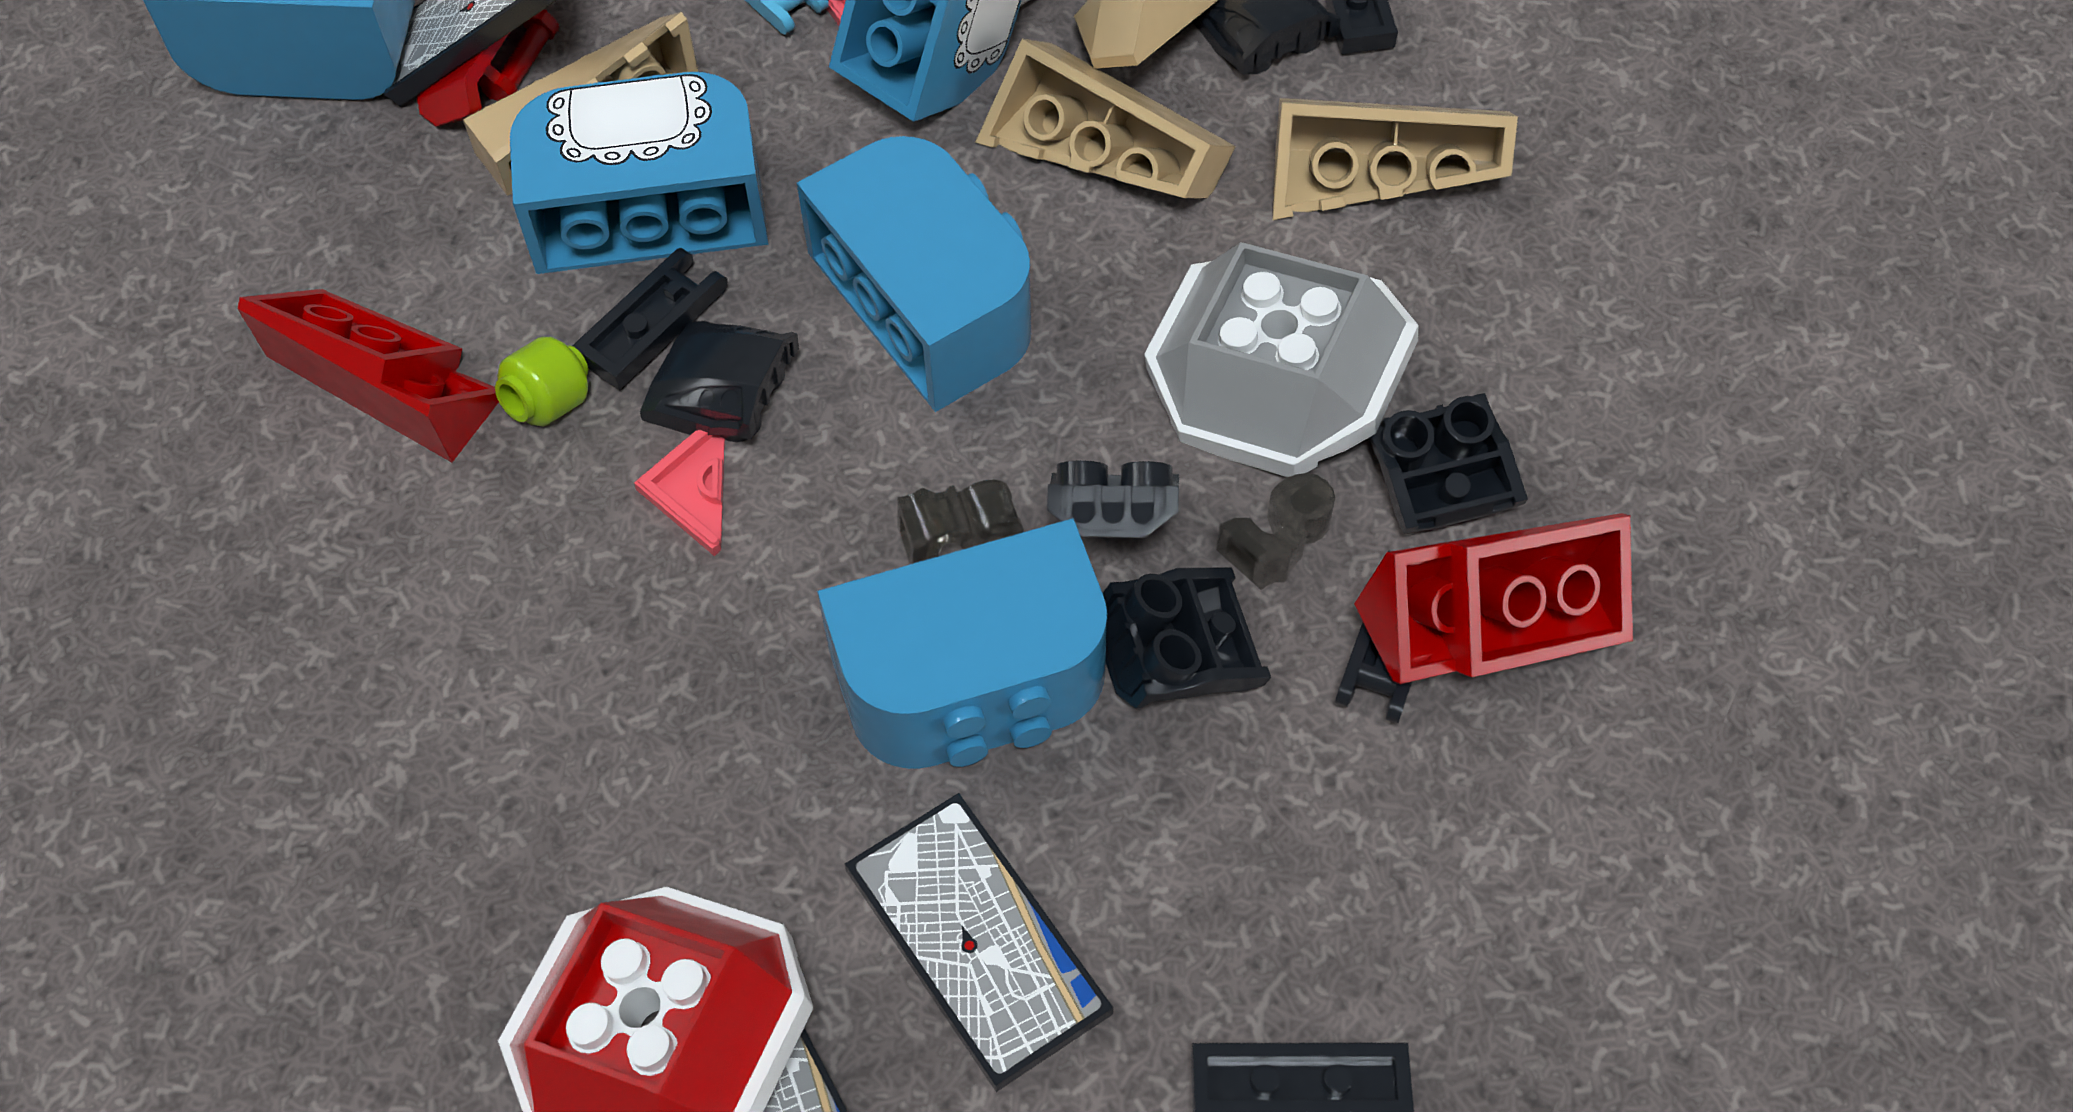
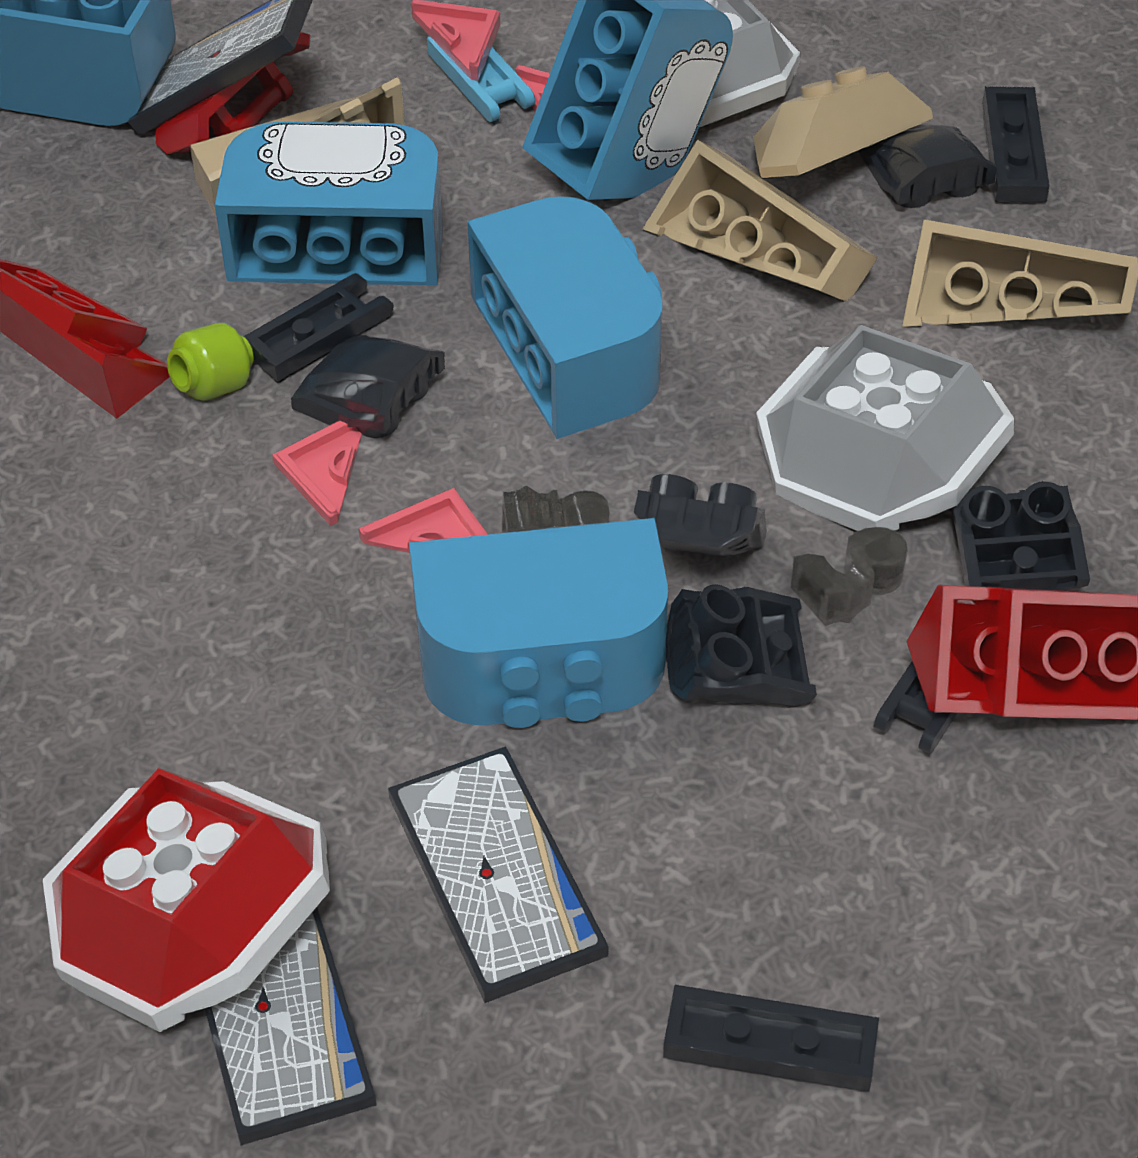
camera: 10 degrees right, 10 degrees down
(828, 543) = (432, 519): none -> coral tile

